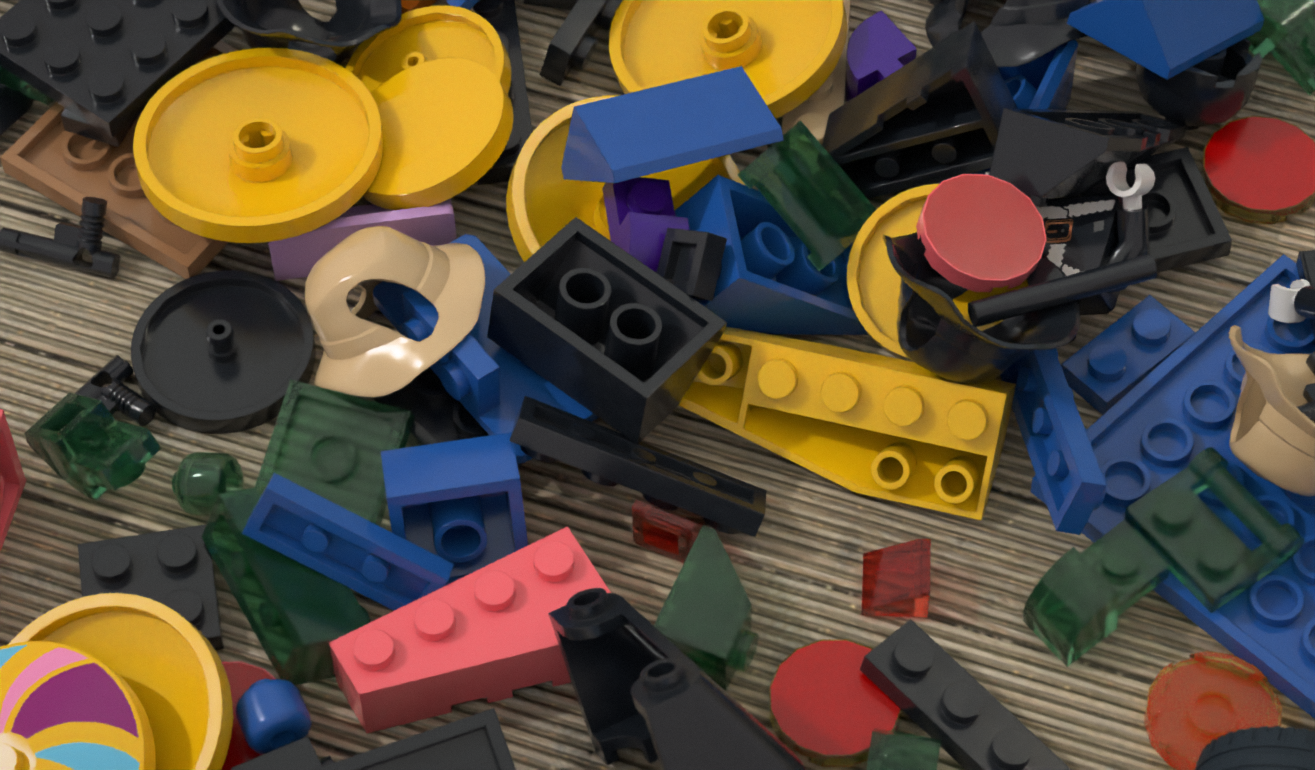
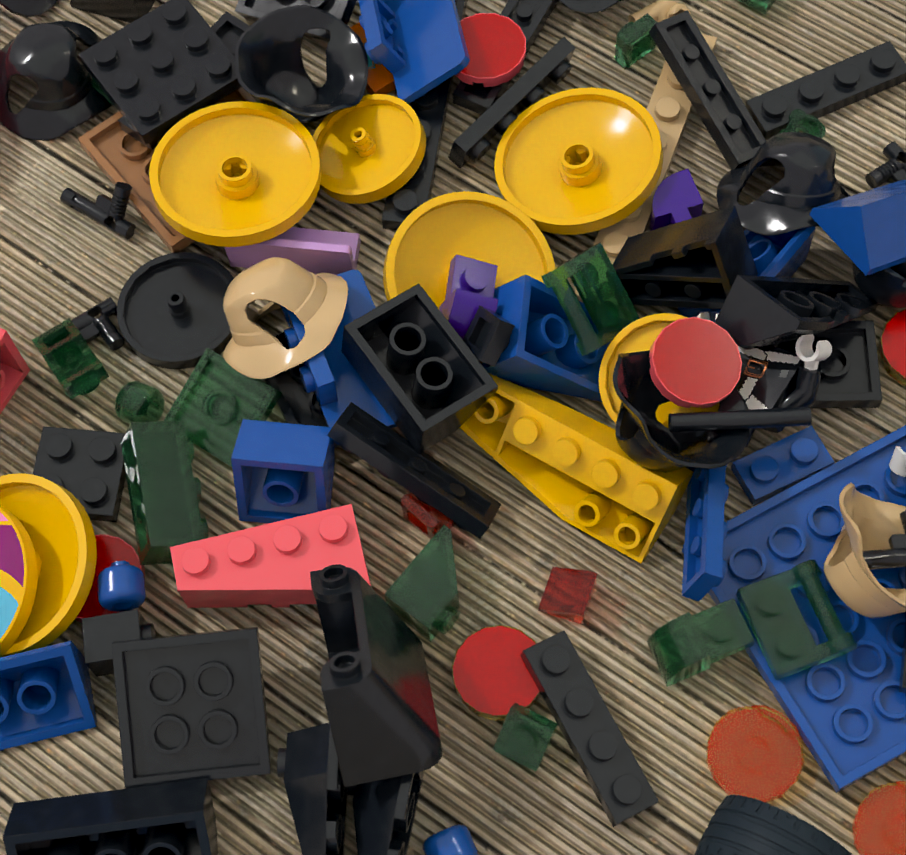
camera: 20 degrees right, 10 degrees up
(344, 545) = (199, 481): blue plate -> none
(439, 131) = (358, 191): yellow piece -> none
(667, 127) = (503, 233): blue slope -> none

